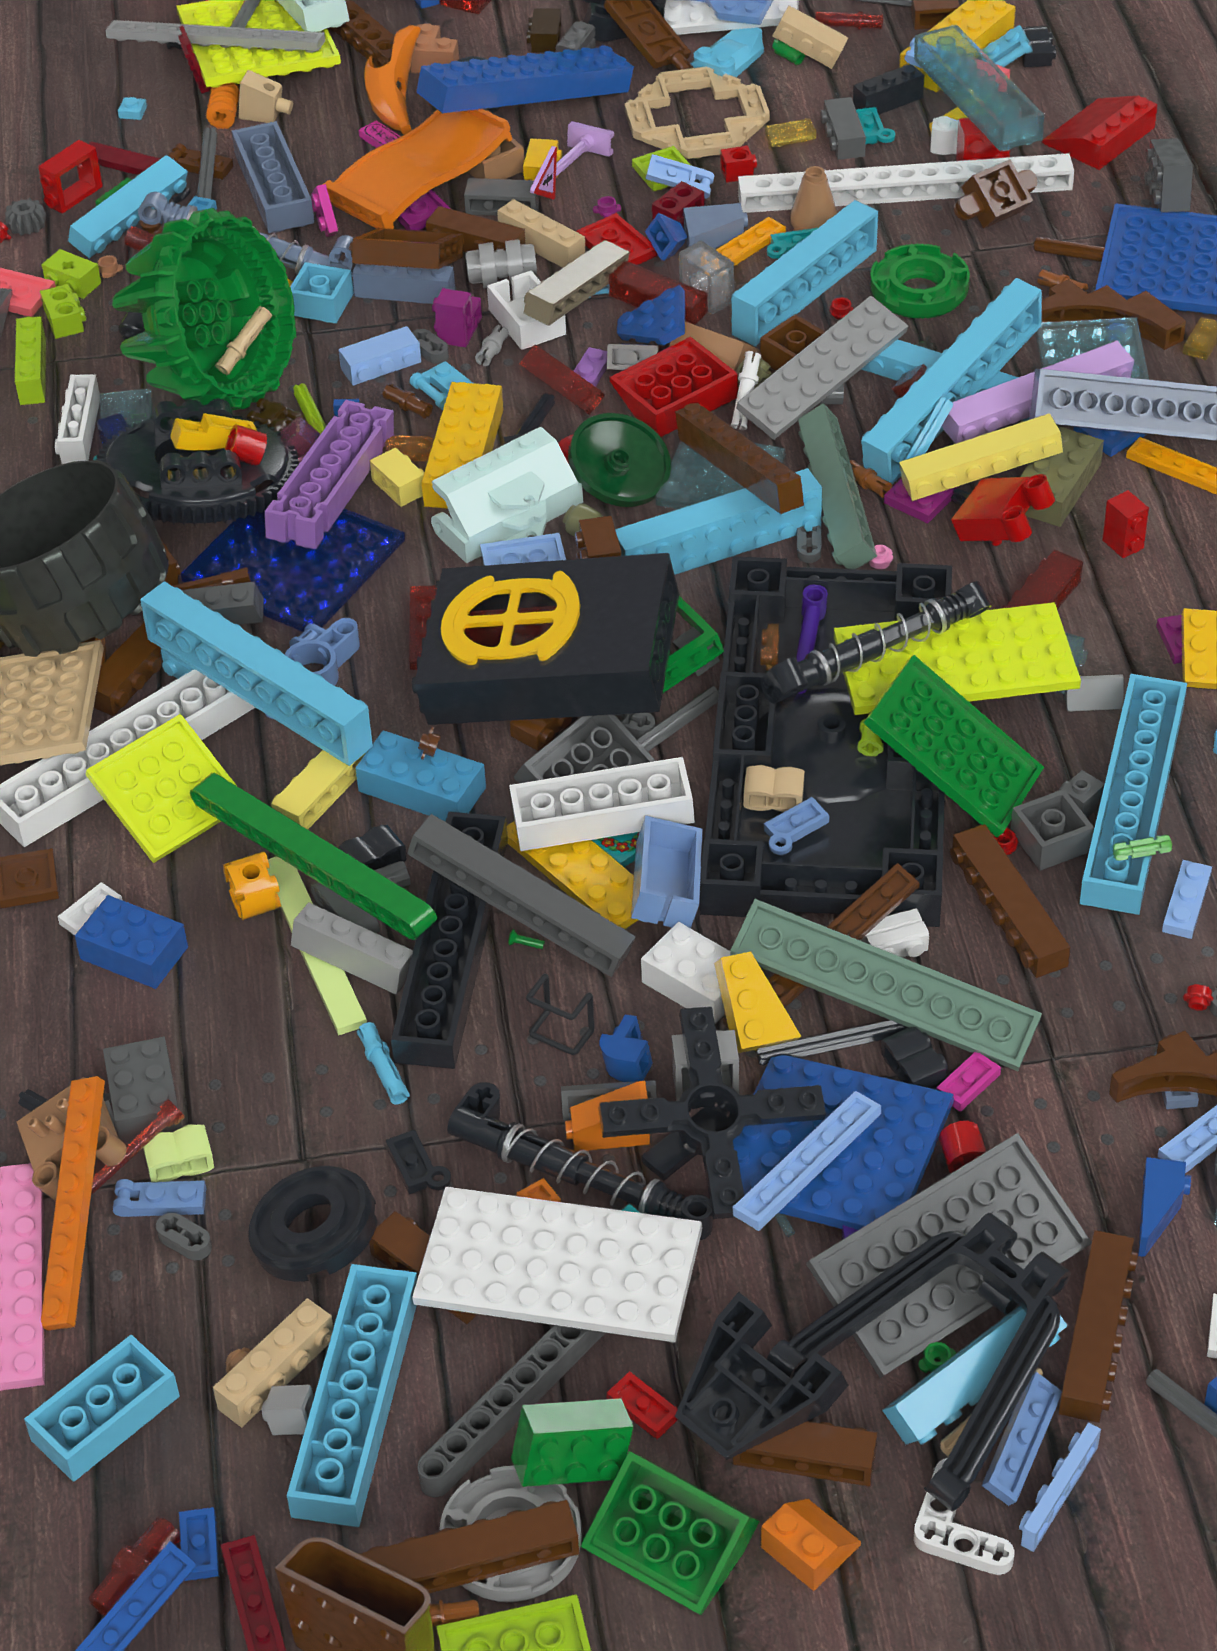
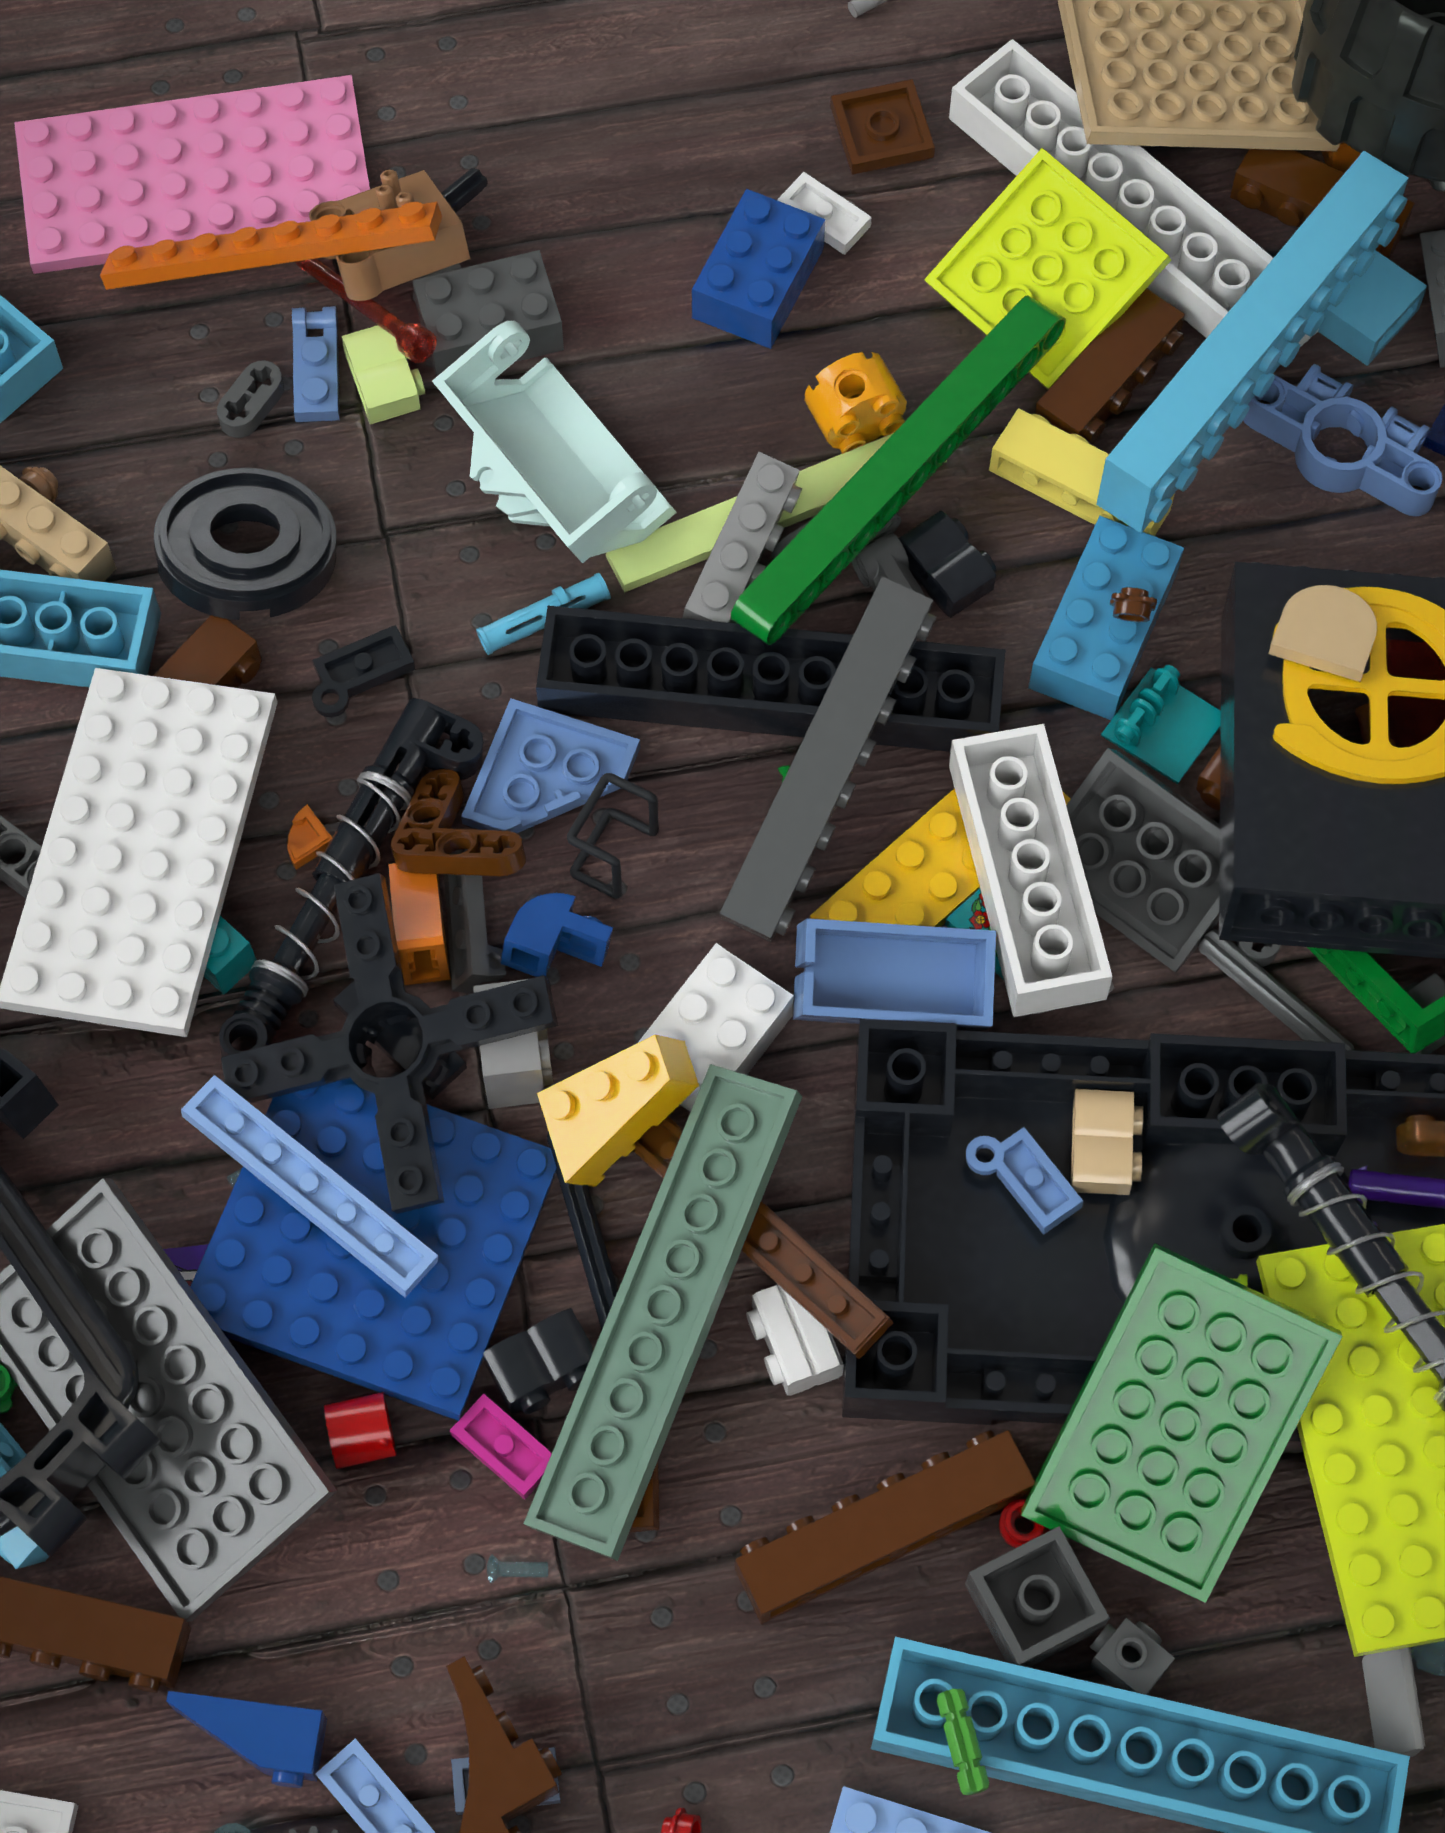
camera: 85 degrees right, 20 degrees up
(245, 768) = (1112, 367): none -> reddish brown brick
(277, 1042) = (548, 450): none -> light aqua piece
(475, 634) = (1326, 631): none -> tan tile
(499, 758) = (1164, 724): none -> teal hinge
(501, 1057) = (543, 768): none -> medium blue plate
(557, 1106) = (427, 845): none -> reddish brown beam
(1045, 1087) = (514, 1569): none -> clear light blue piece

